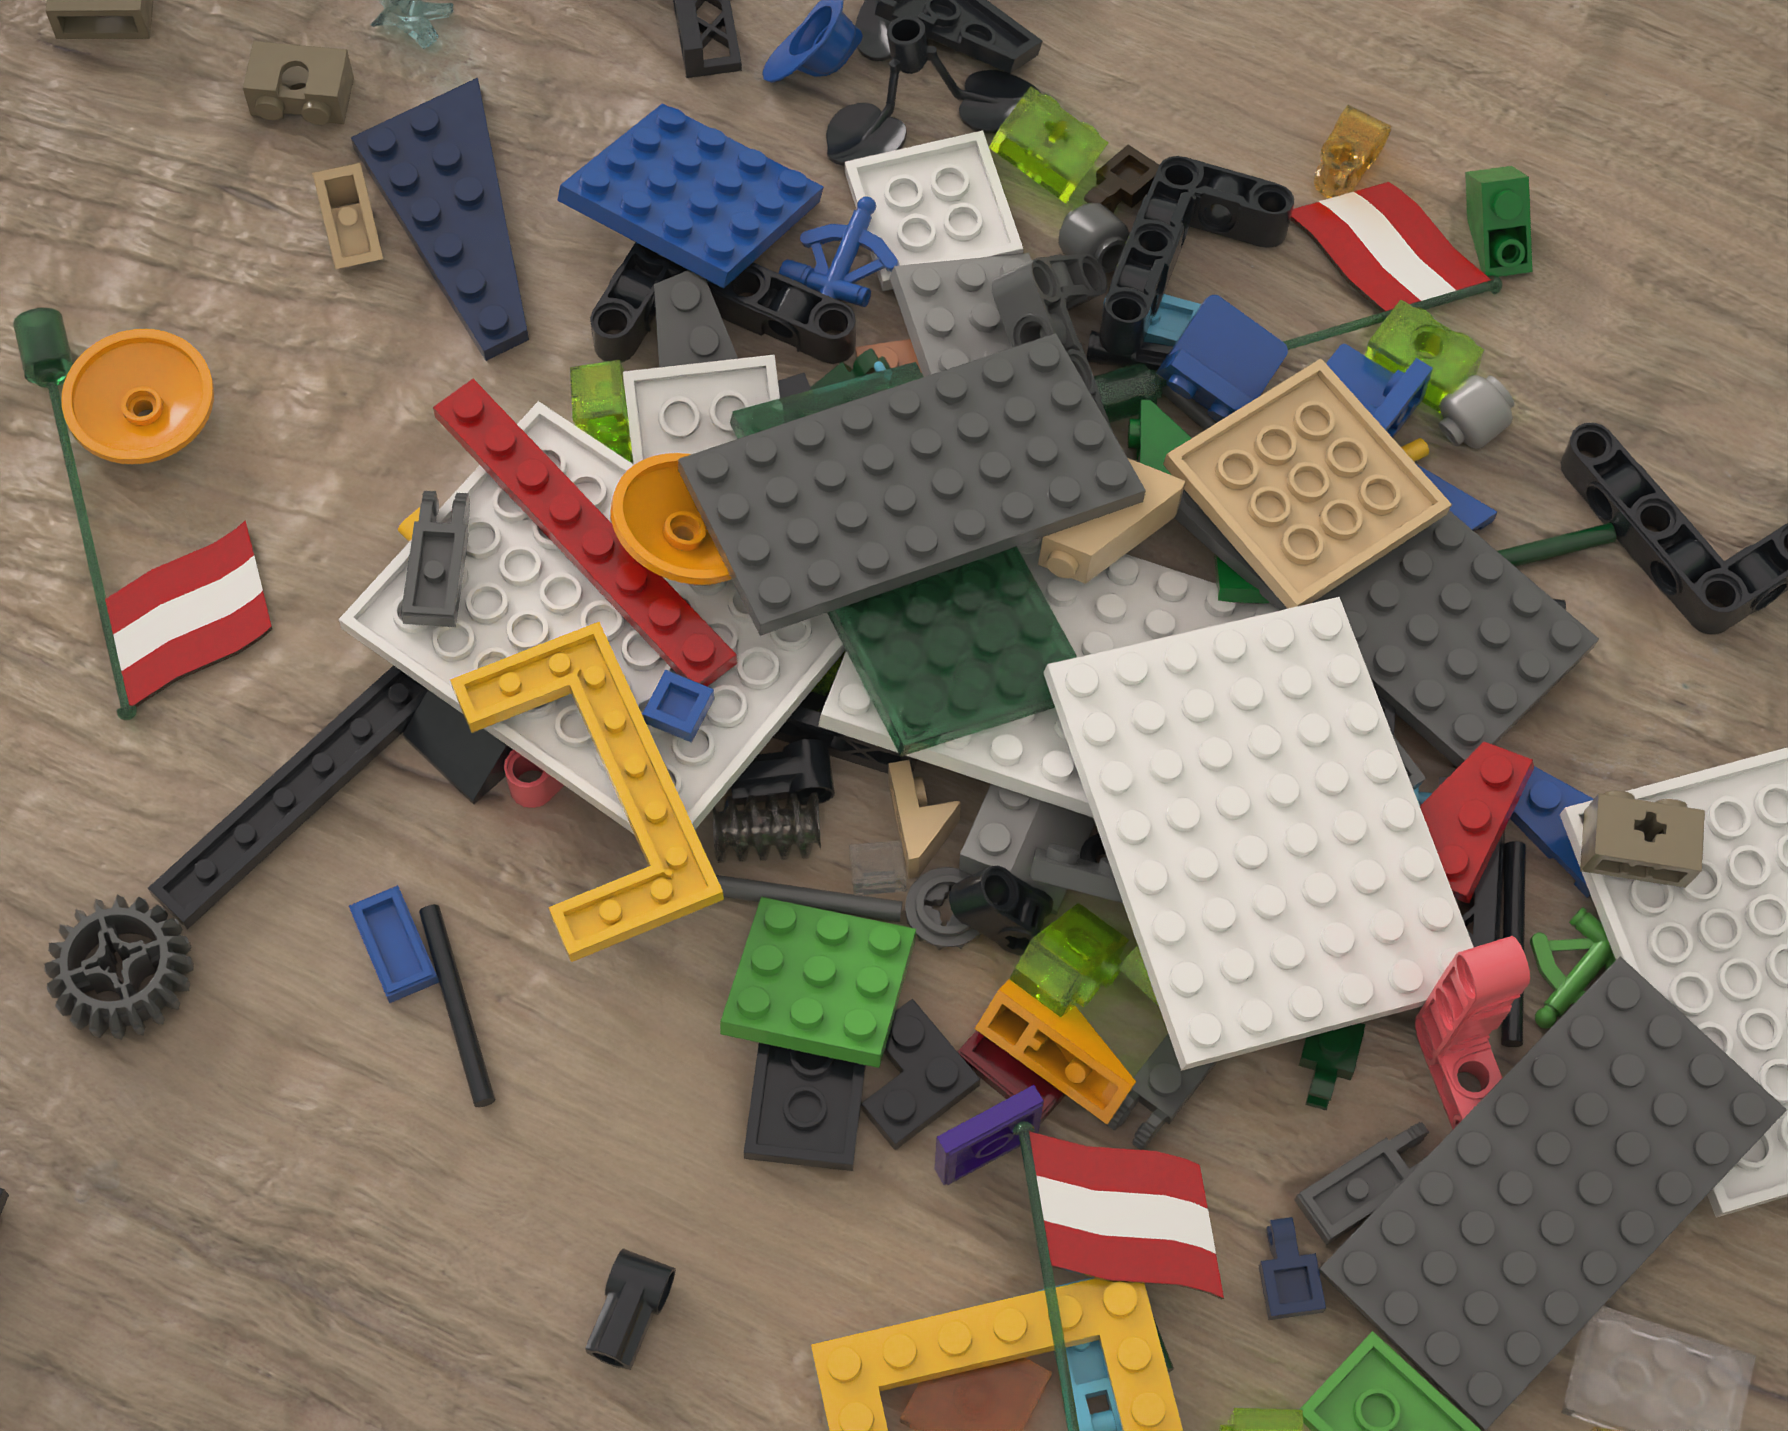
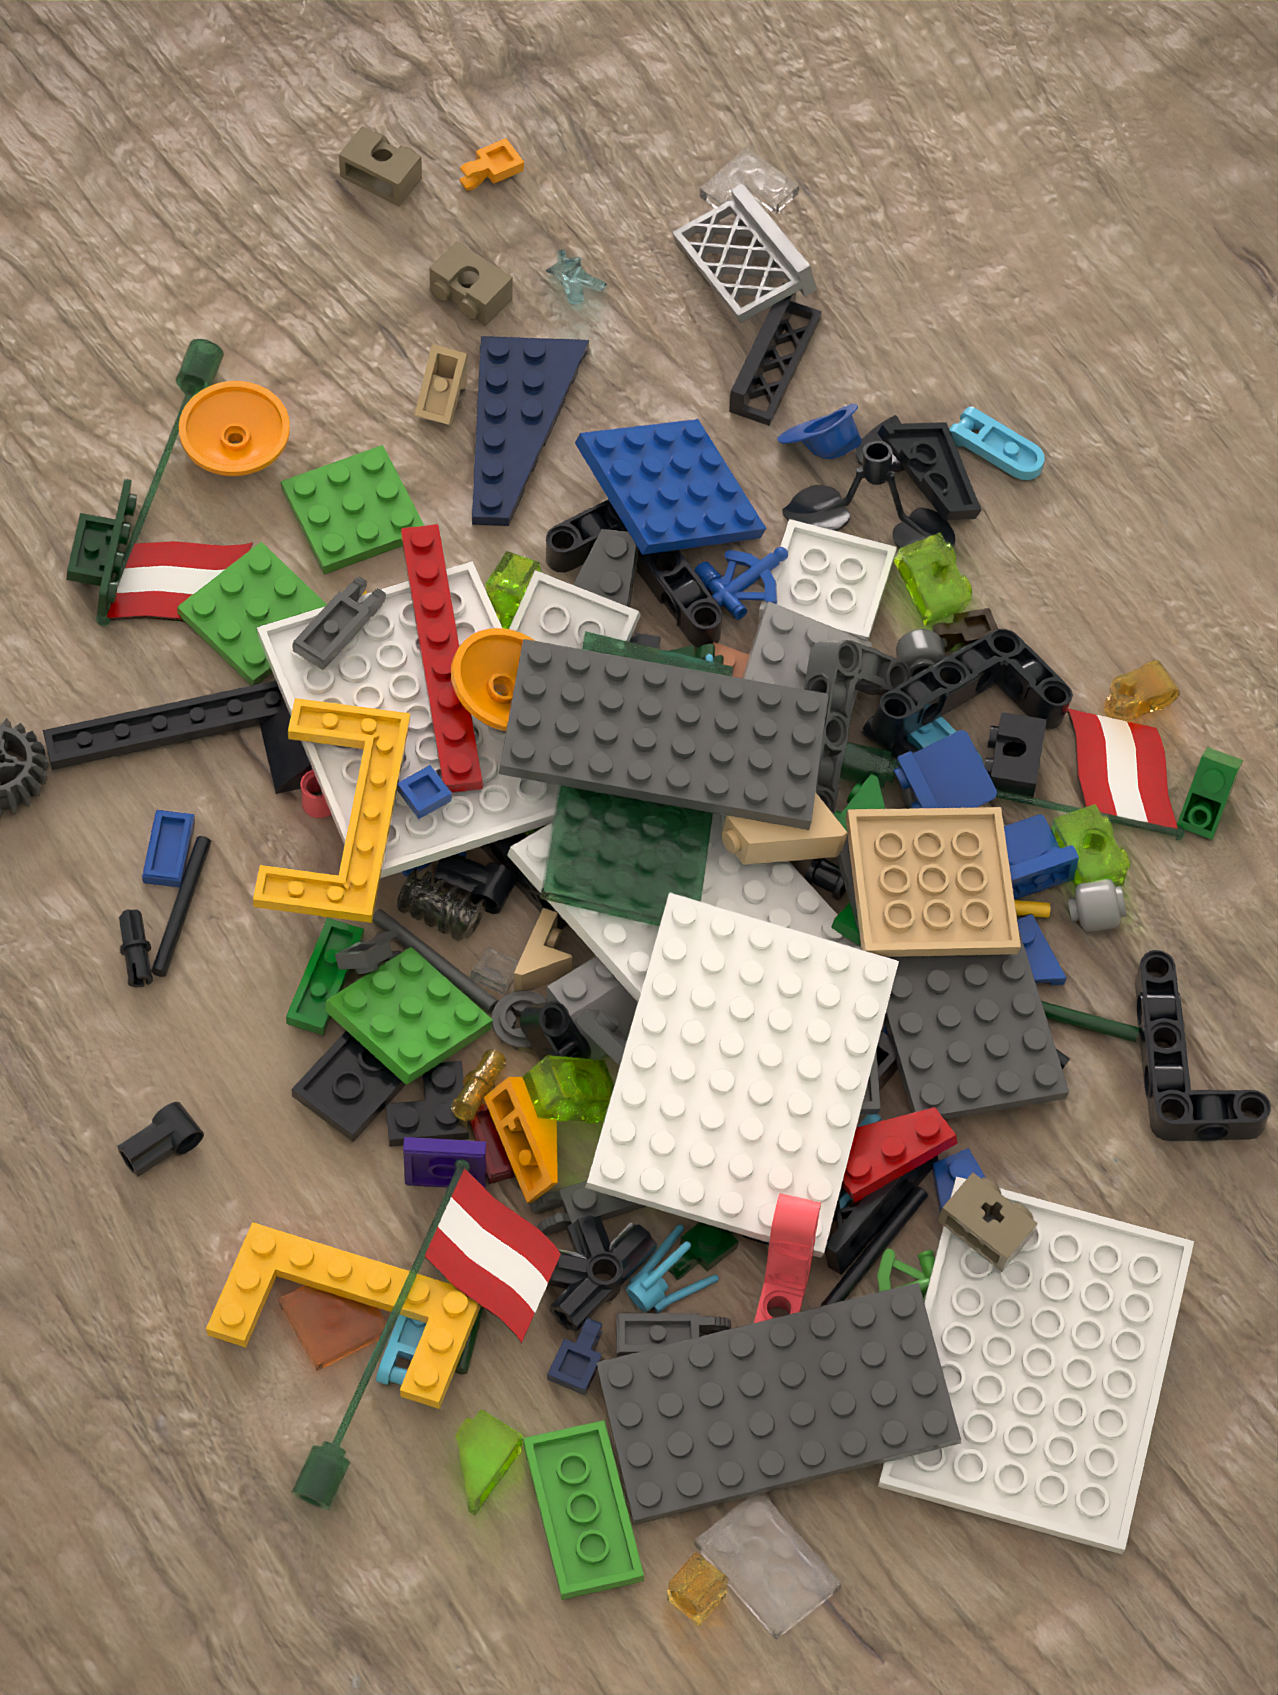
camera: 30 degrees right, 5 degrees down
(66, 629) = (96, 548): none -> dark green bracket
(291, 601) = (239, 600): none -> bright green plate
(337, 417) = (351, 508): none -> bright green plate
(438, 1089) = (135, 948): none -> black axle
(687, 995) = (322, 977): none -> green plate
(725, 938) = (367, 954): none -> dark grey plate
(955, 1016) = (478, 1084): none -> clear yellow pin
(1170, 544) = (827, 876): none -> black bush
(1219, 1140) = (593, 1256): none -> black piece
(1273, 272) = (1016, 753): none -> black brick
(1308, 1142) = (648, 1286): none -> medium azure plant

